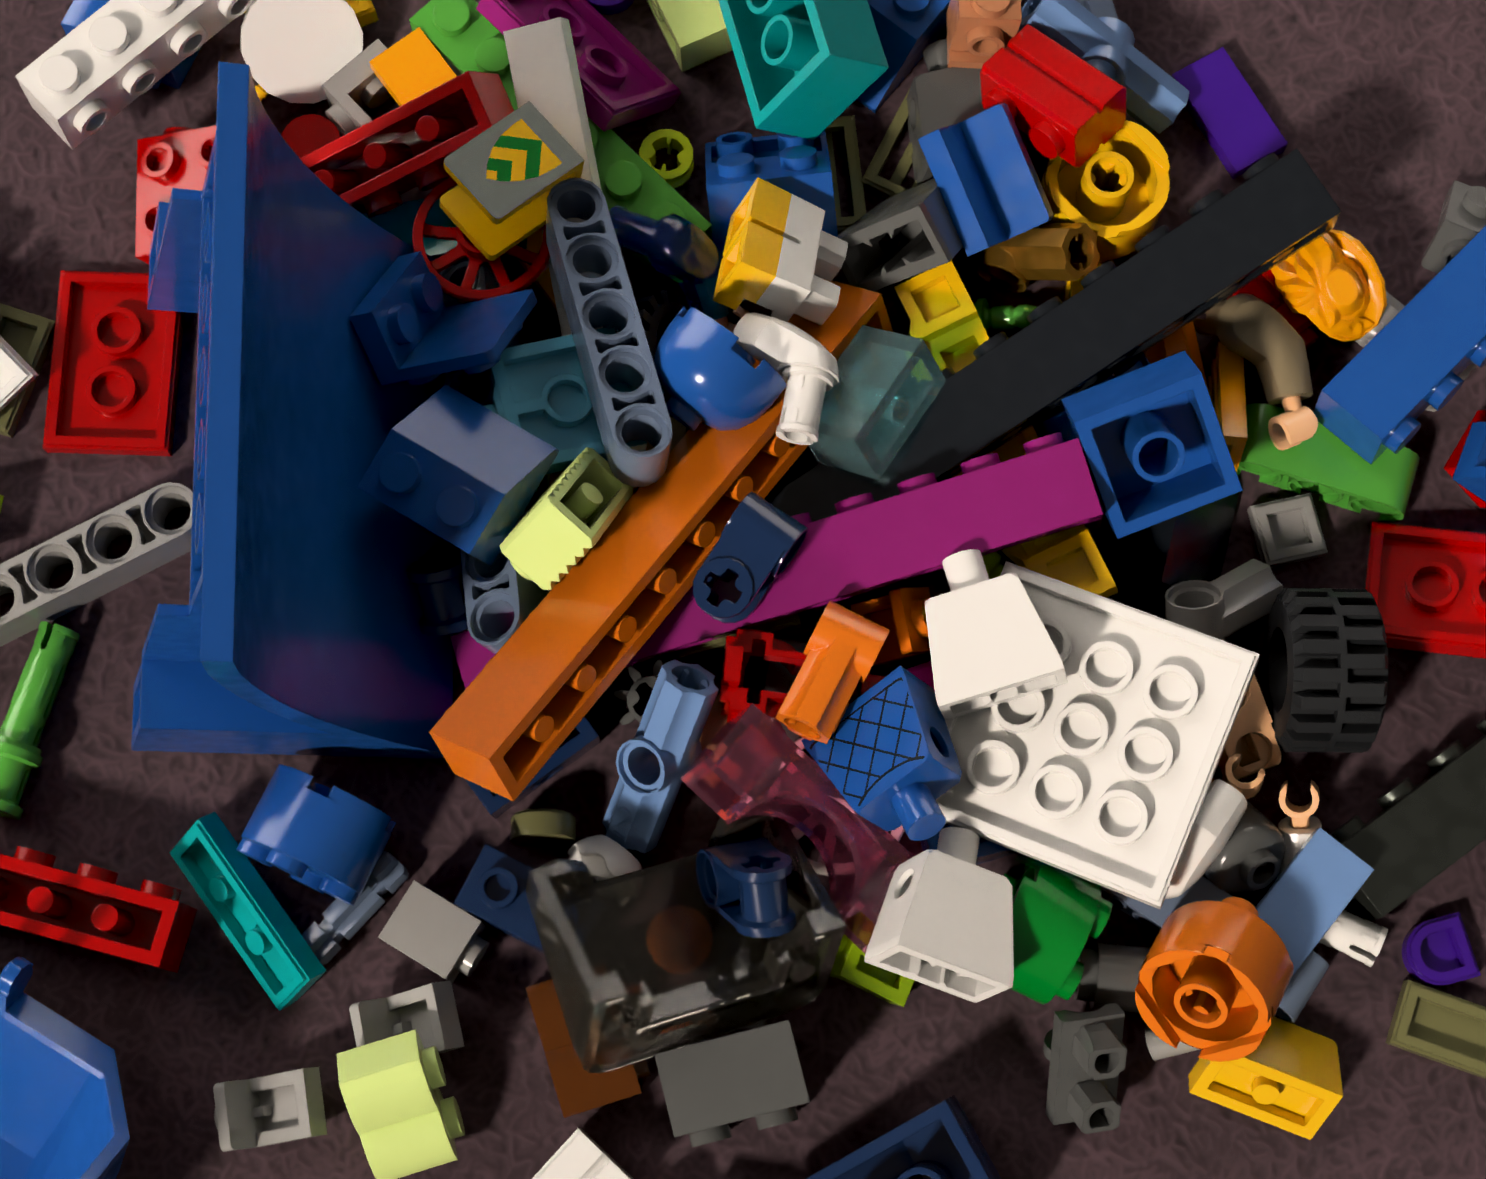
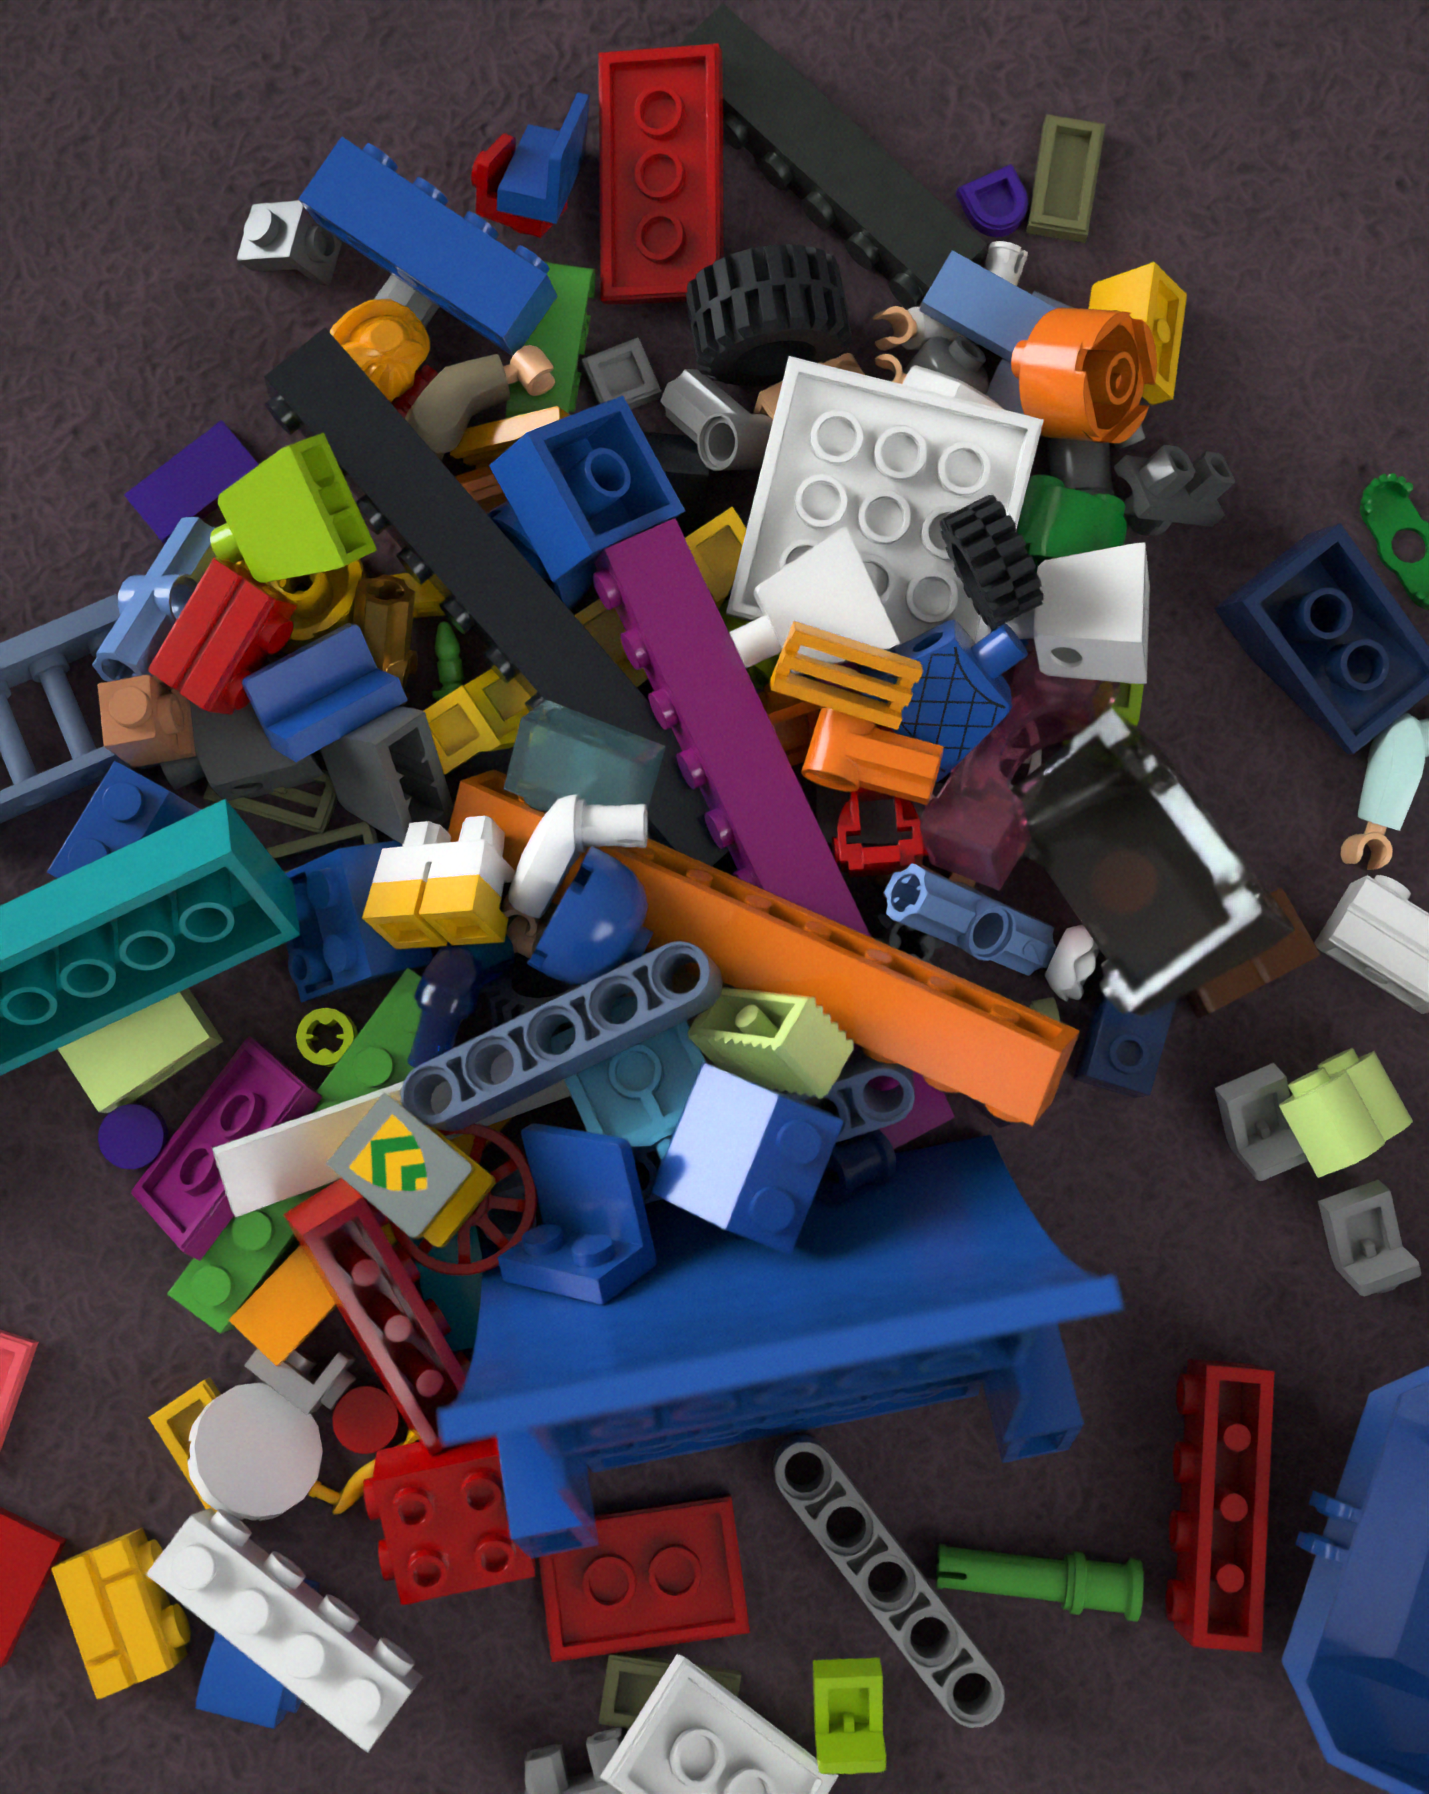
camera: 100 degrees left, 5 degrees up
(247, 911) = (1184, 1305): teal tile -> none
(316, 834) = (1113, 1232): blue brick -> none
(344, 919) = (1157, 1202): sand blue axle -> none
(436, 933) = (1173, 1116): light grey brick -> none
(732, 1081) = (1263, 795): dark grey brick -> none
(748, 886) = (1084, 810): dark blue piece -> none
(756, 548) = (768, 850): dark blue piece -> none
(904, 640) = (838, 699): none -> light orange tile
(1008, 810) = (991, 561): none -> black tyre
(1156, 165) = (292, 516): none -> lime torso

